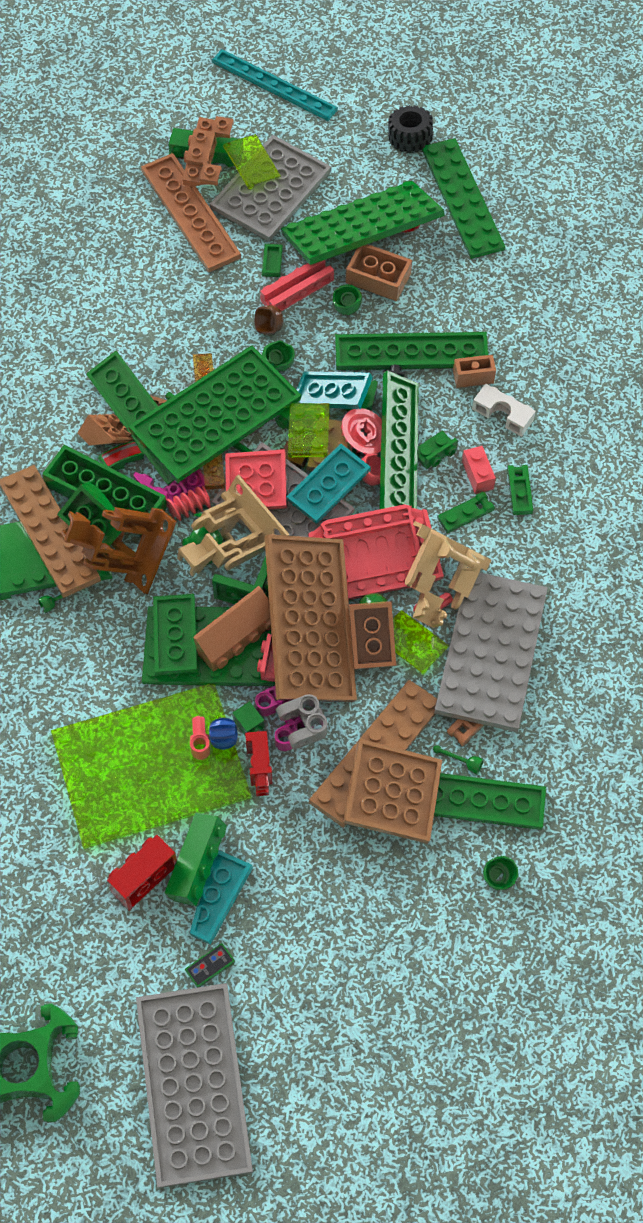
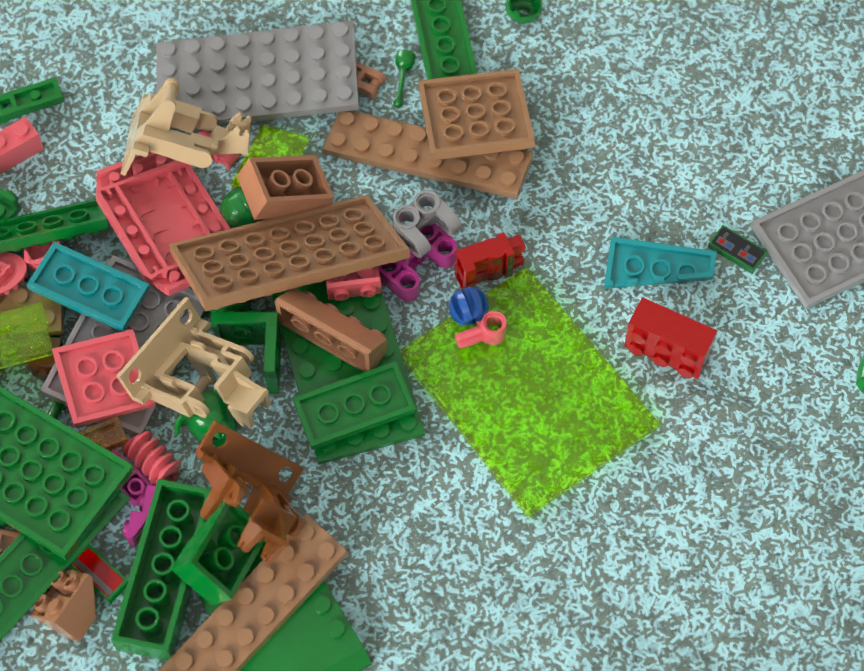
camera: 105 degrees left, 0 degrees up
(48, 602) = (350, 585): green hinge -> none
(196, 859) = (625, 293): green brick -> none
(248, 719) = (434, 295): green brick -> none
(465, 512) = (75, 149): green plate -> none

